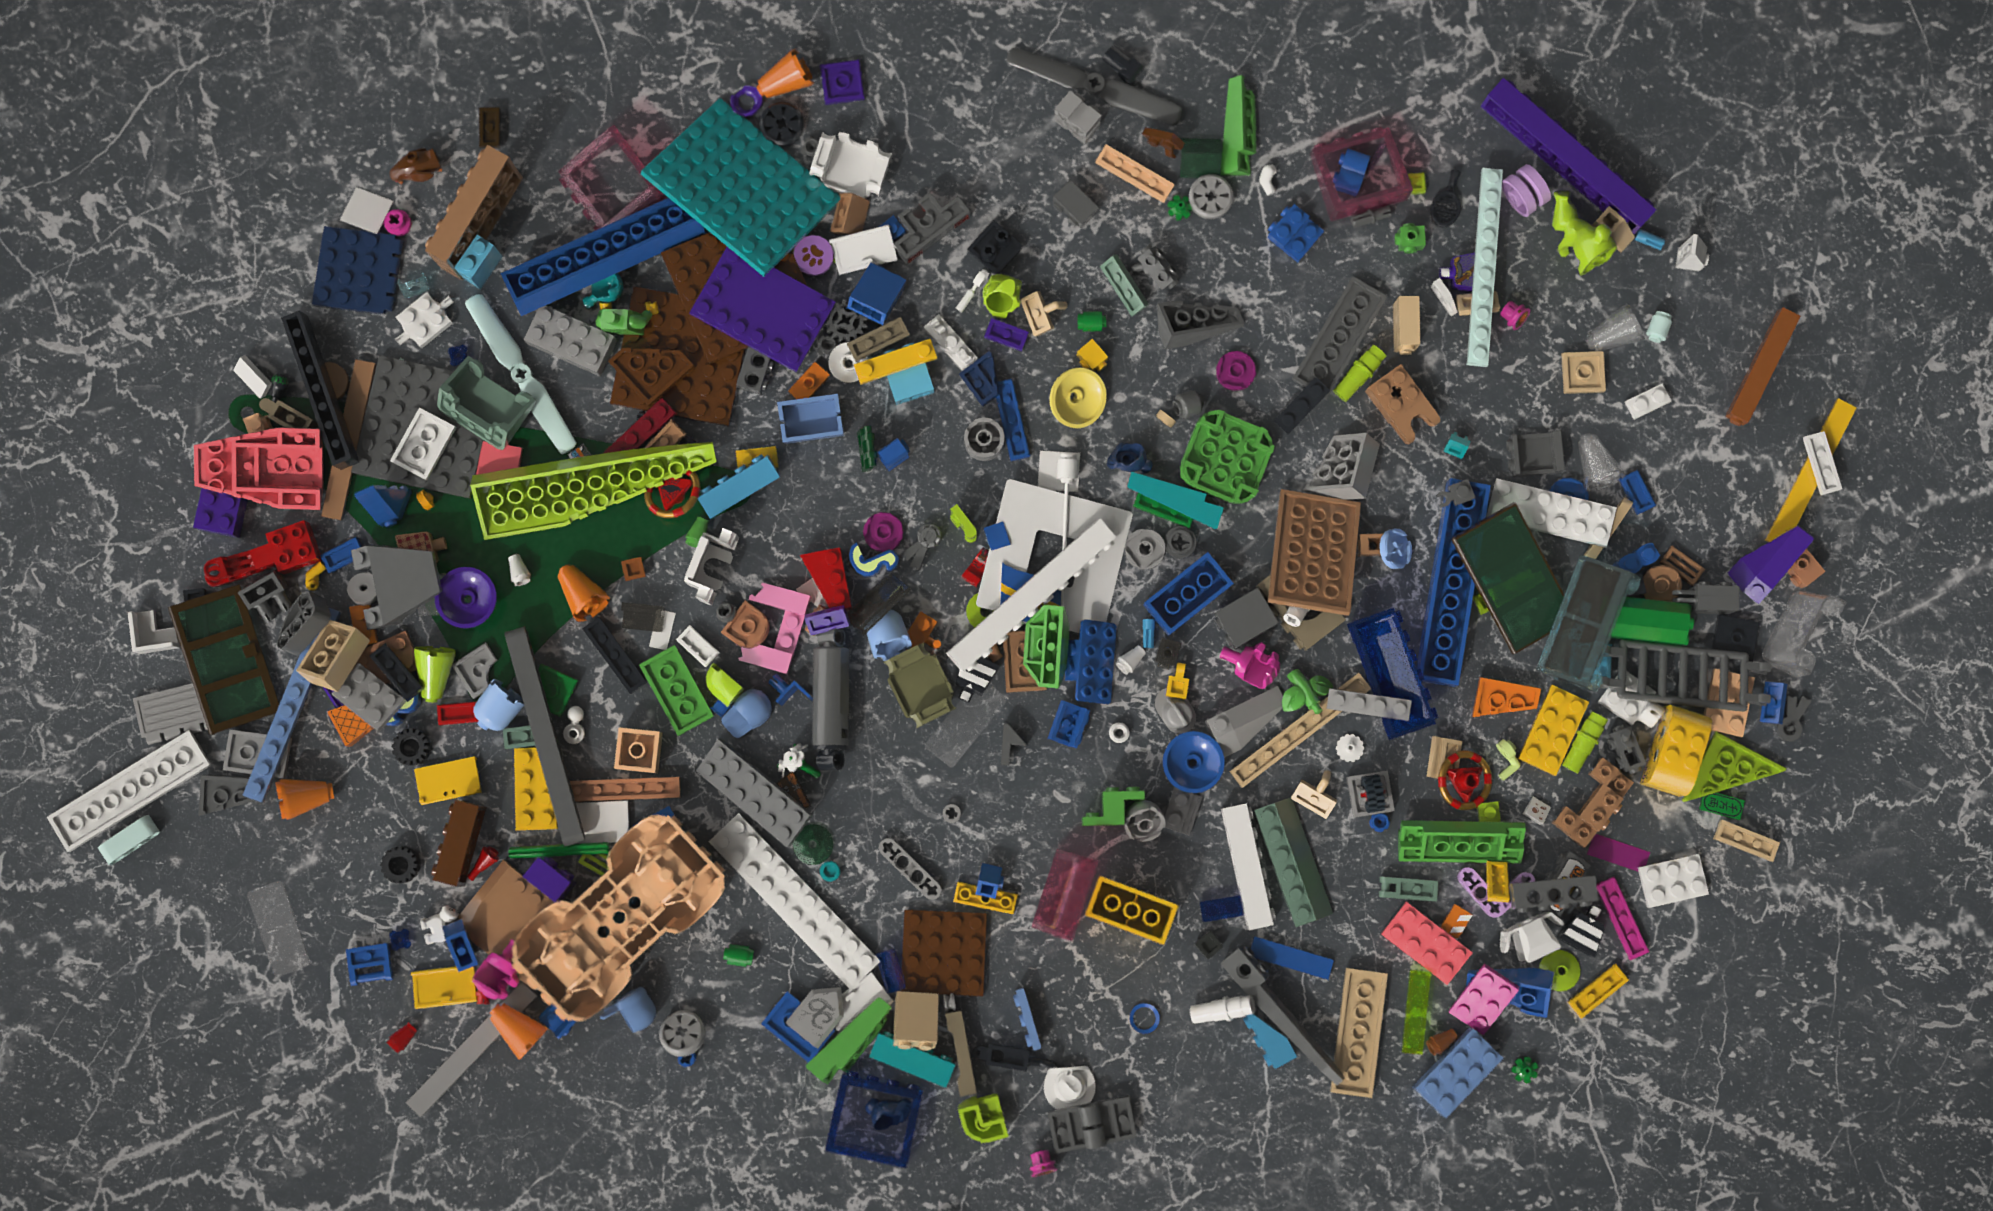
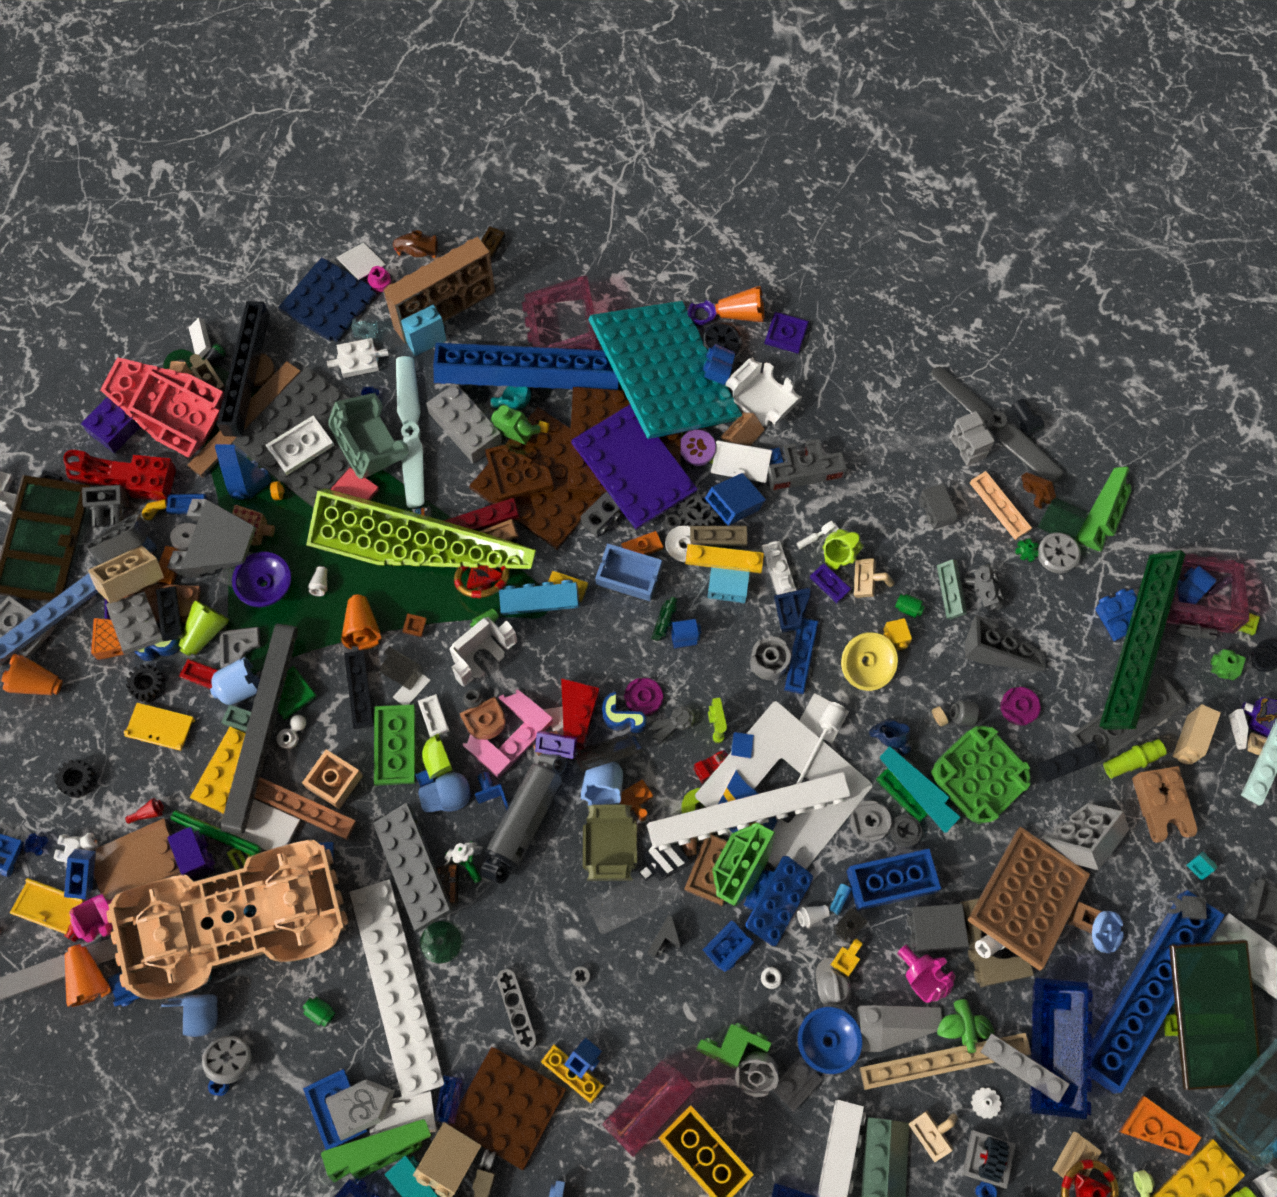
camera: 25 degrees right, 15 degrees down
(459, 843) = (133, 783): reddish brown brick -> none
(793, 155) = (718, 364): none -> blue brick
(830, 871) = (443, 974): teal tile -> none
(995, 248) = (853, 510): black plate -> none
(1266, 177) = (1113, 560): white arm -> none
(1322, 254) = (1142, 641): none -> dark green plate

